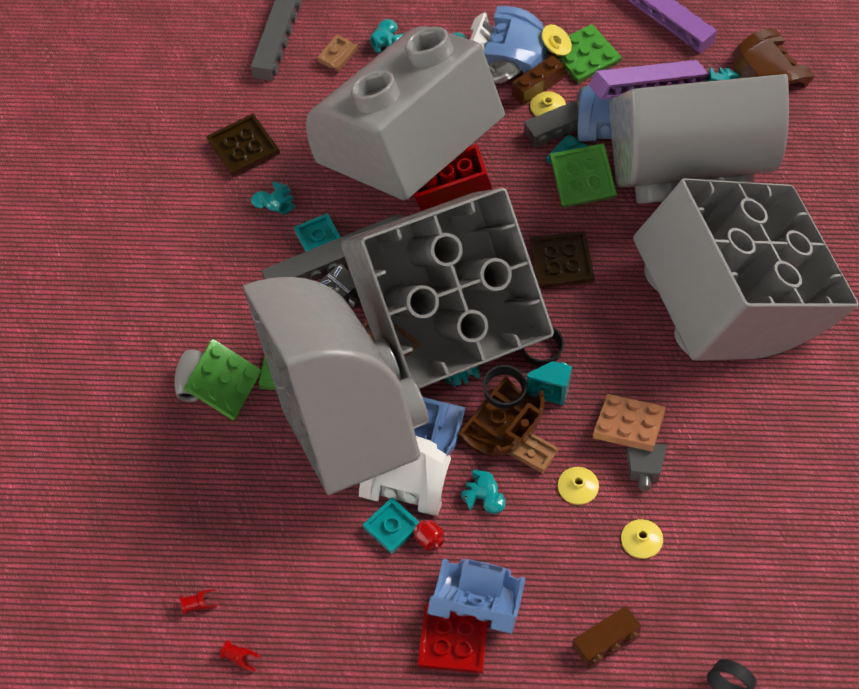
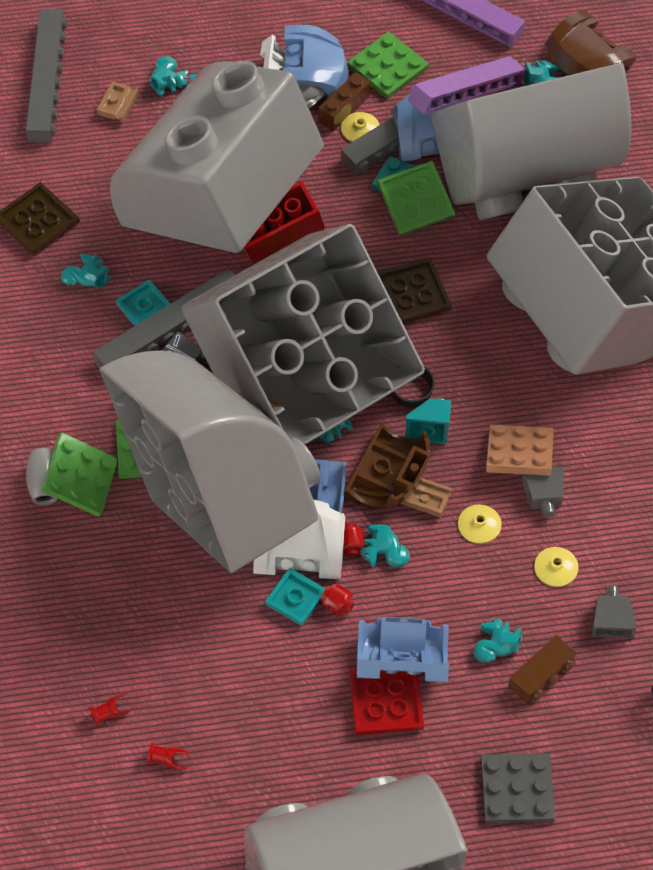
camera: 15 degrees left, 0 degrees up
(455, 480) = (353, 539): none -> red head
(505, 370) = (384, 416): black tyre -> none
(556, 40) = (356, 54): light yellow dish -> none
(573, 604) = (501, 644): none -> teal animal
(686, 596) = (613, 616): none -> dark grey torso

